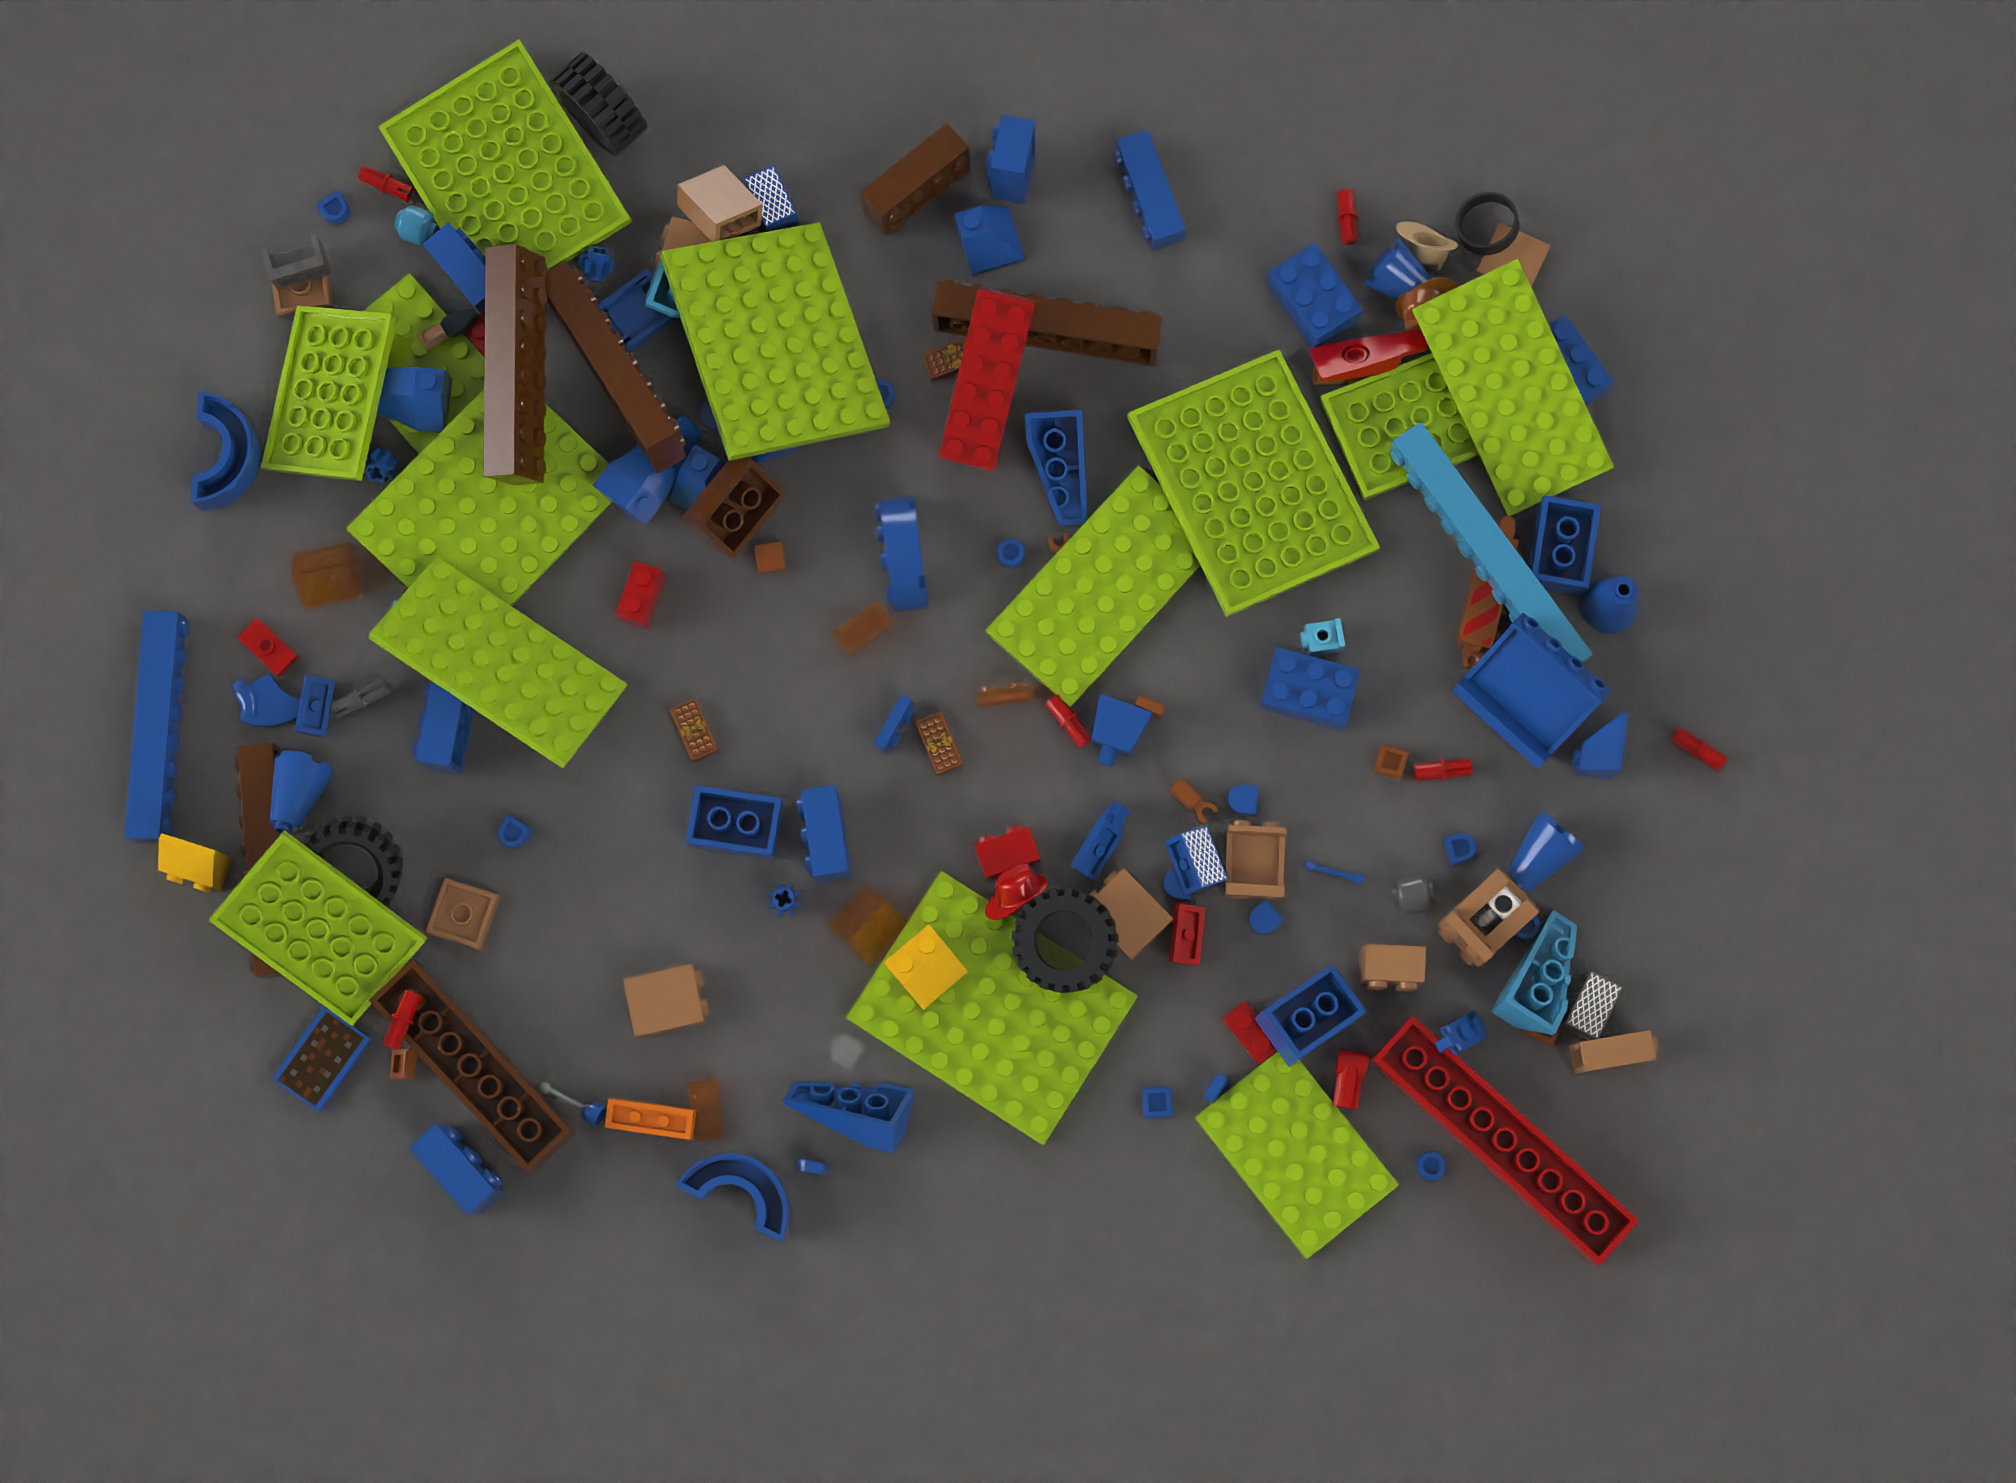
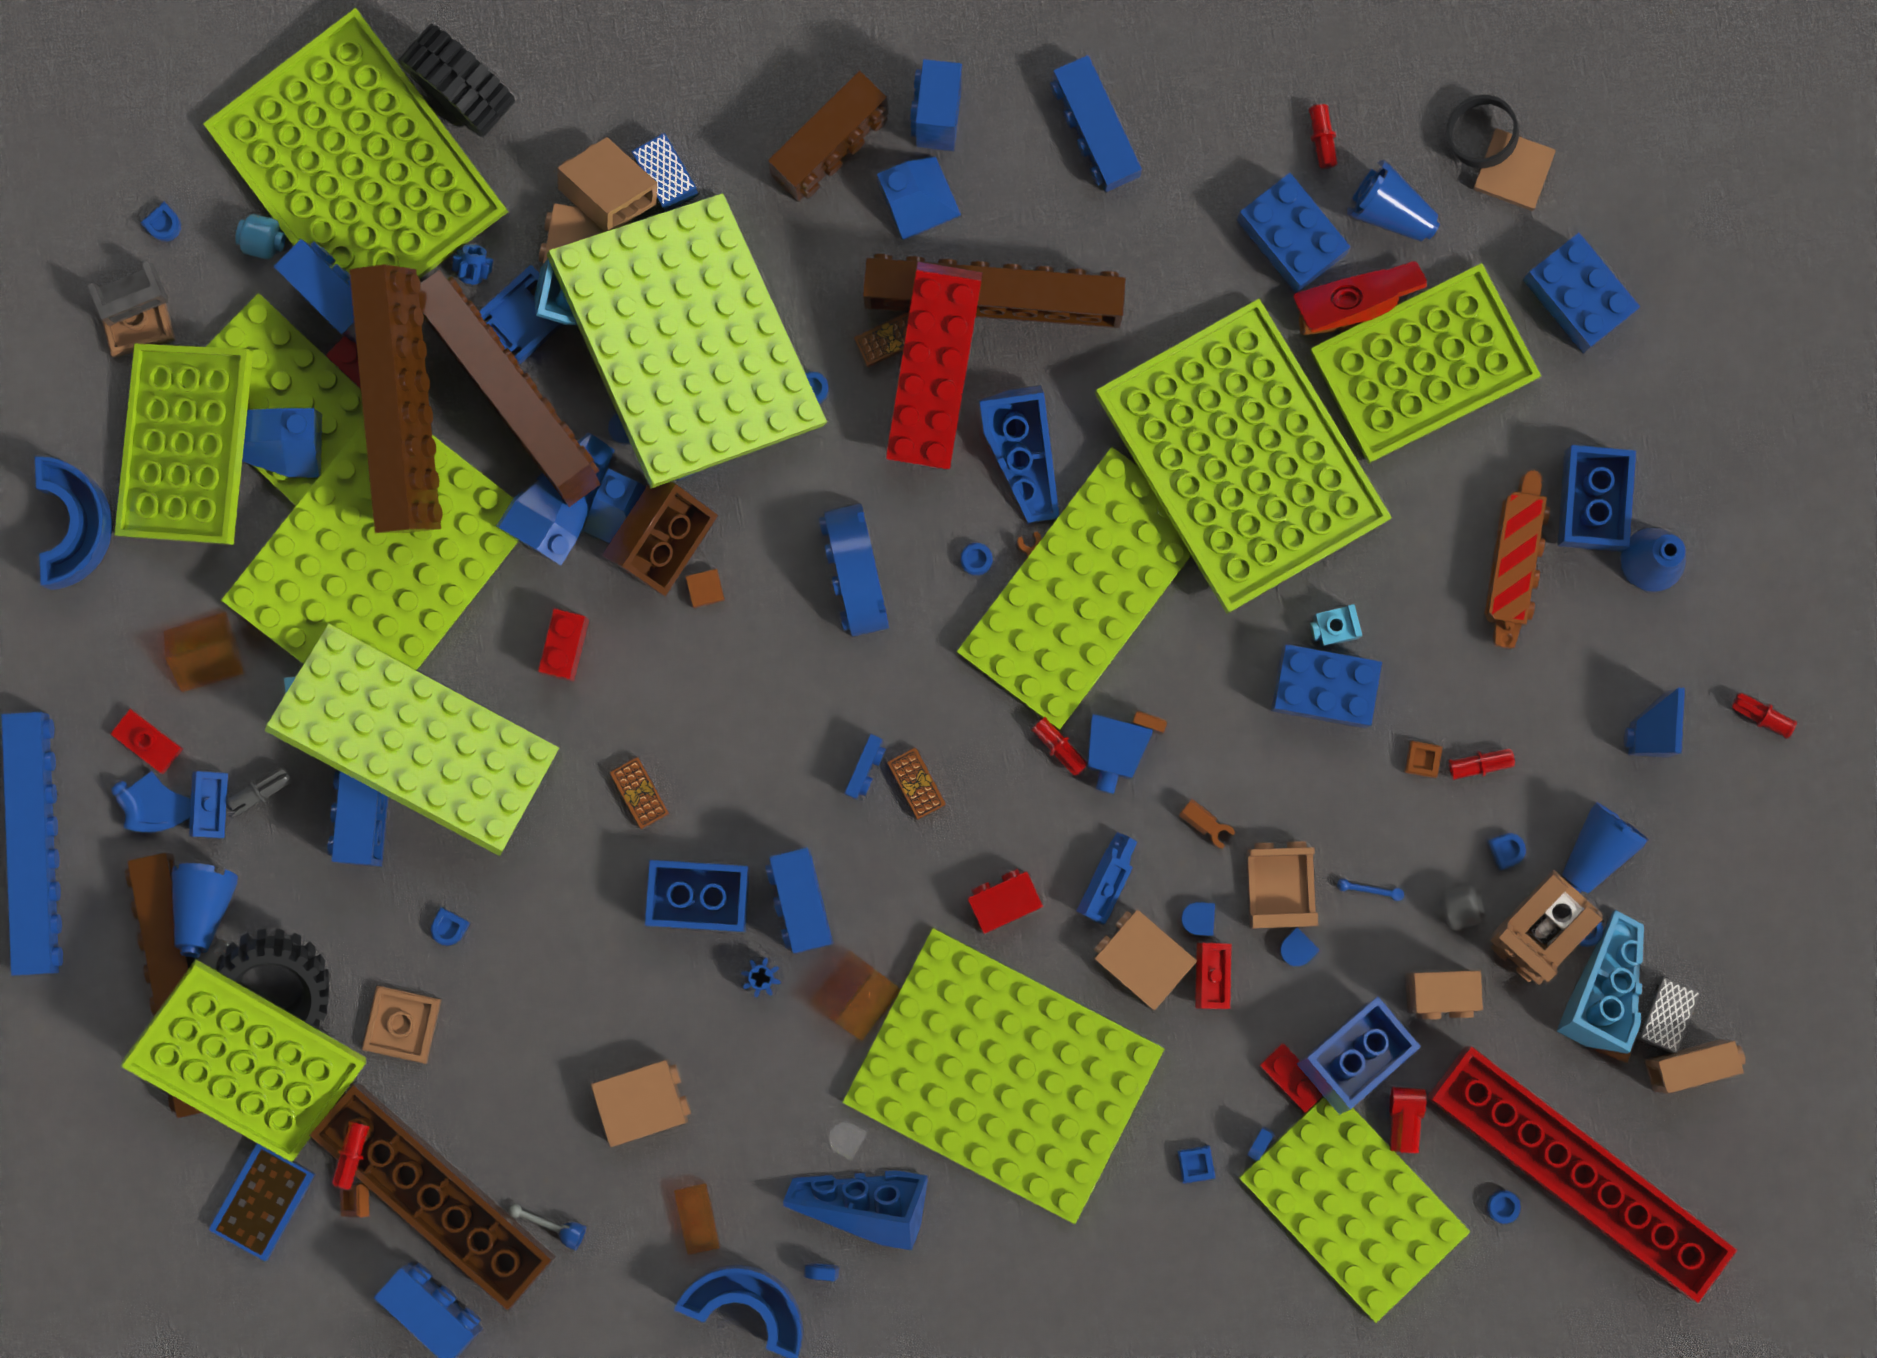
camera: 10 degrees left, 5 degrees up
(193, 863) = (91, 996): yellow slope -> none
(381, 465) = (252, 521): blue gear -> none
(385, 183) = (218, 189): red axle -> none
(448, 327) = (311, 354): piece -> none
(650, 1118) = (637, 1235): orange plate -> none
(863, 628) = (818, 660): clear orange plate -> none
(925, 967) = (927, 1041): yellow slope -> none
(1013, 890) = (1018, 945): red piece -> none
(1016, 693) = (999, 718): clear orange plate -> none
(1100, 957) = (1099, 960): black tyre -> none
(1196, 860) = (1216, 892): blue panel -> none
(1243, 799) = (1262, 817): blue tile -> none
(1419, 295) = (1422, 233): dark orange piece -> none
(1426, 244) = (1415, 161): tan piece -> none
(1462, 1034) = (1527, 1060): blue hinge -> none
(1481, 537) = (1516, 514): dark azure brick -> none
(1512, 387) = (1527, 324): lime plate -> none
(1531, 690) = (1574, 669): blue panel -> none

